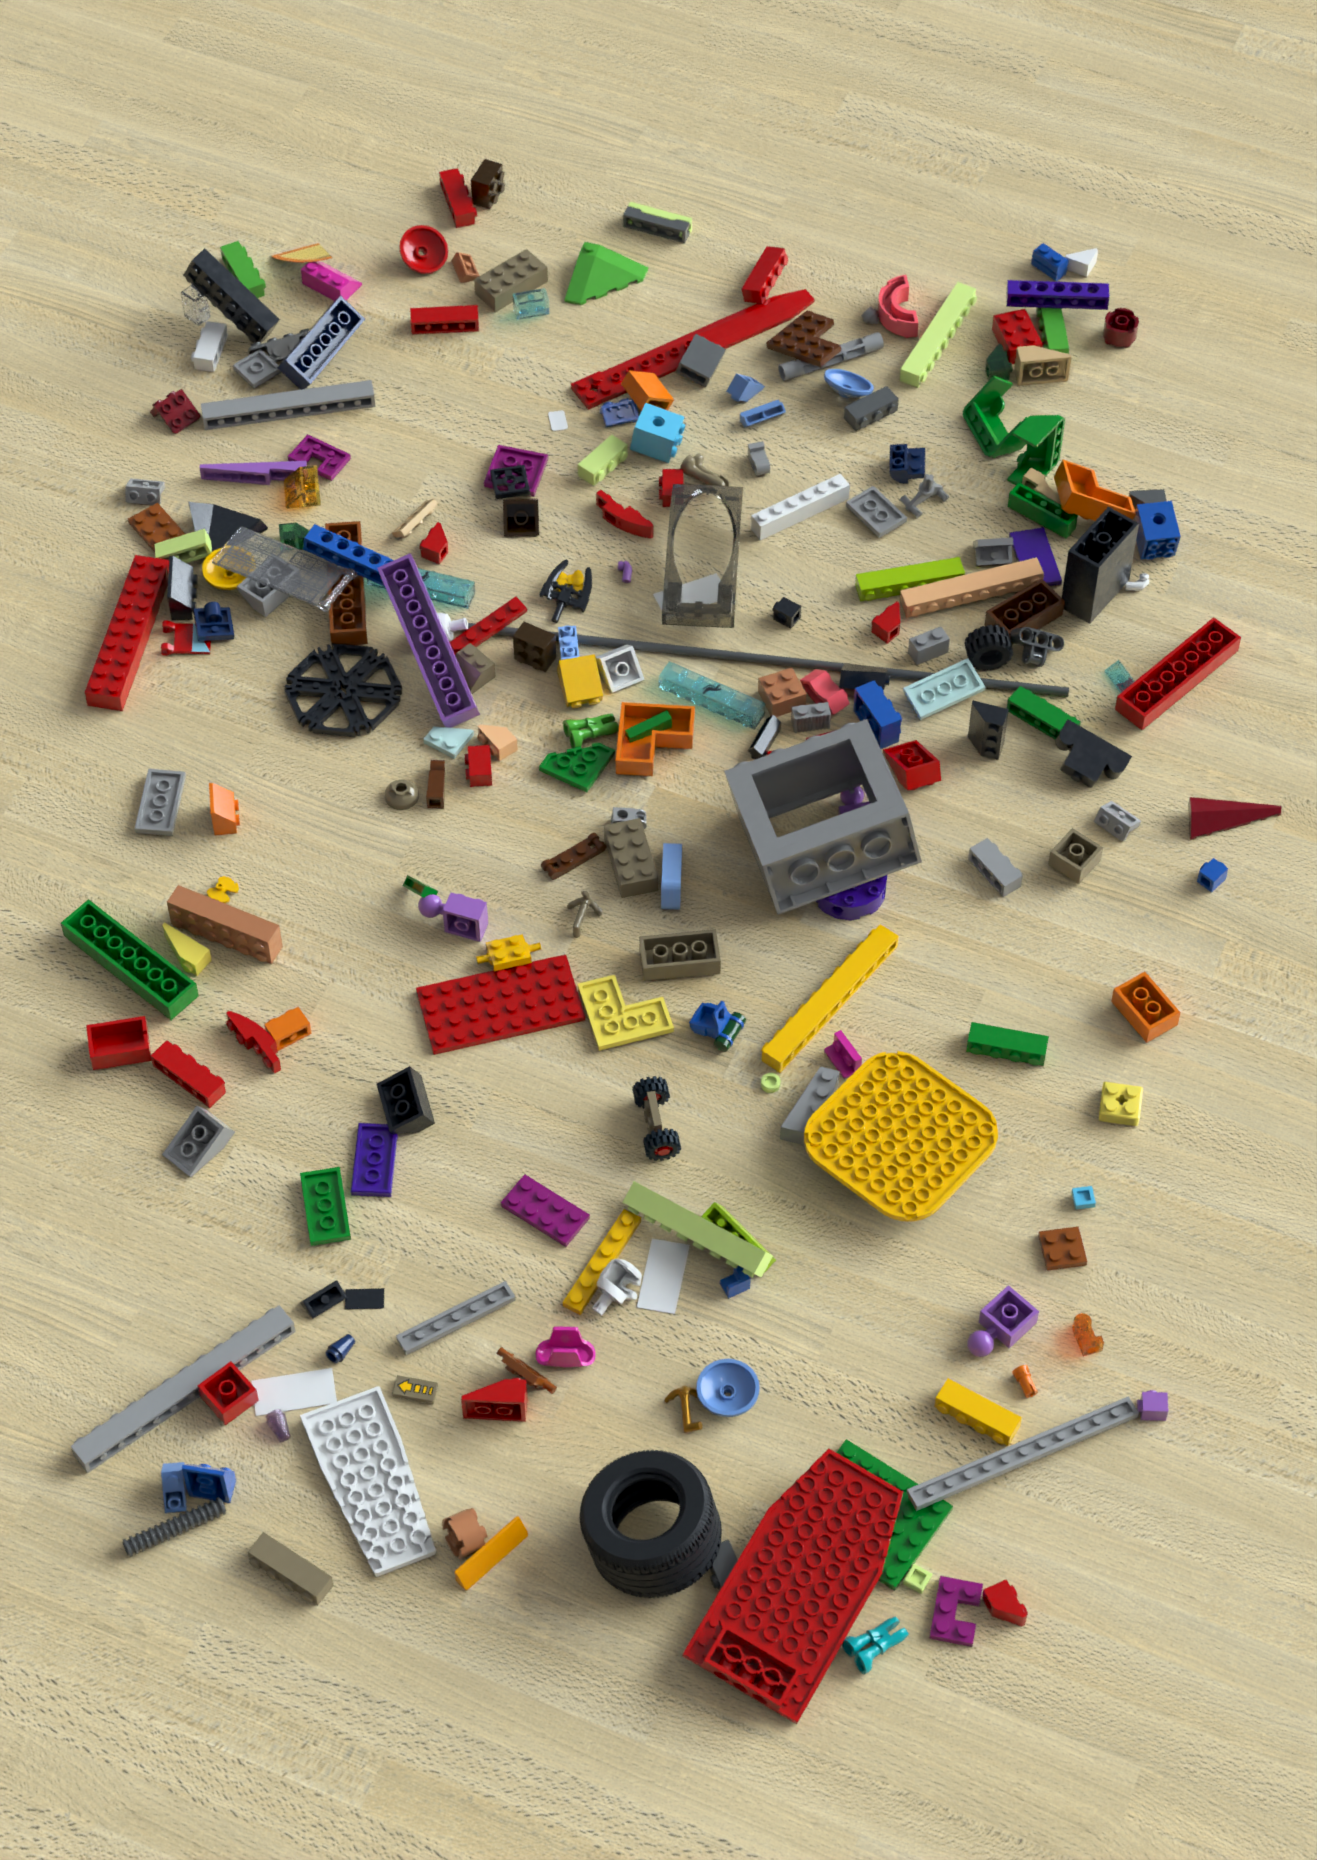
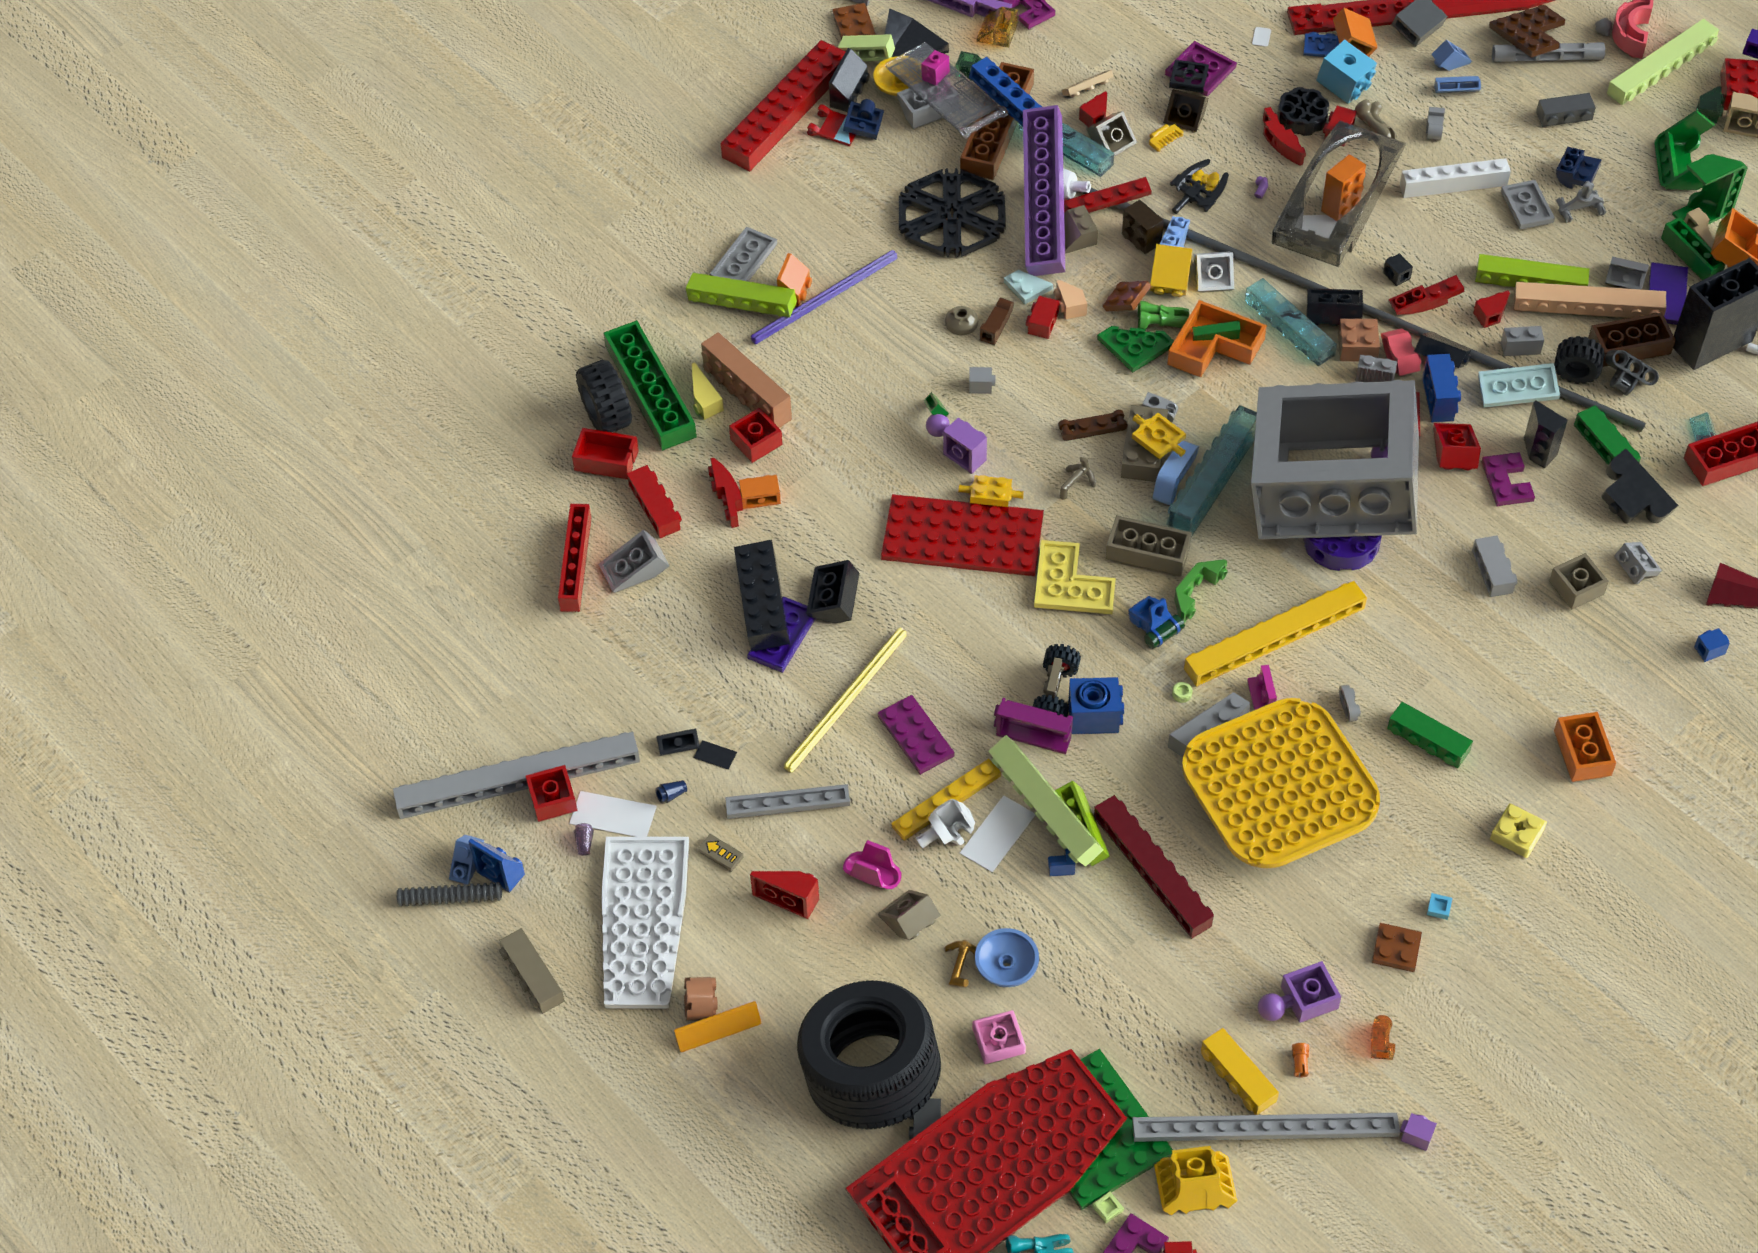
camera: 25 degrees right, 0 degrees up
(95, 987) = (604, 396): none -> black tyre
(139, 1156) = (574, 558): none -> red brick
(177, 839) = (741, 294): none -> lime brick
(219, 892) = (756, 354): yellow piece -> none
(257, 814) = (824, 296): none -> axle
(258, 974) = (755, 435): none -> red brick
(266, 550) = (935, 67): none -> dark pink head
(325, 1206) = (718, 659): green plate -> none
(339, 1129) = (761, 595): none -> black brick
(449, 847) = (981, 380): none -> light grey brick
(462, 561) = (1113, 133): none -> dark tan slope
(463, 1203) = (844, 701): none -> light yellow axle
(509, 550) = (1164, 135): none -> yellow piece
(518, 1367) = (826, 873): dark orange plate -> none
(549, 719) = (1126, 296): none -> dark orange plate
(603, 460) = (1275, 84): yellowish green brick -> none
(619, 1381) = (910, 914): none -> dark tan slope
(632, 483) = (1303, 111): none -> black connector
(645, 846) = (1158, 435): none -> yellow plate
(653, 1163) = (1033, 726): none -> magenta door
(701, 1123) = (1095, 705): none -> blue brick
(706, 549) = (1343, 187): none -> orange brick
(707, 862) = (1214, 471): none -> clear light blue brick
(745, 666) = (1331, 305): none -> black slope
(745, 960) = (1210, 571): none -> bright green slope
(753, 1451) = (1007, 1028): none -> bright pink brick
(765, 737) = (1327, 373): piece -> none
(818, 1254) = (1153, 866): none -> dark red brick
(825, 632) = (1428, 298): none -> red slope
(848, 383) = (1552, 80): medium blue dish -> none
(924, 1041) = (1347, 699): none -> light grey plate
(958, 776) = (1497, 470): none -> magenta plate
(982, 1524) = (1195, 1180): none -> yellow slope

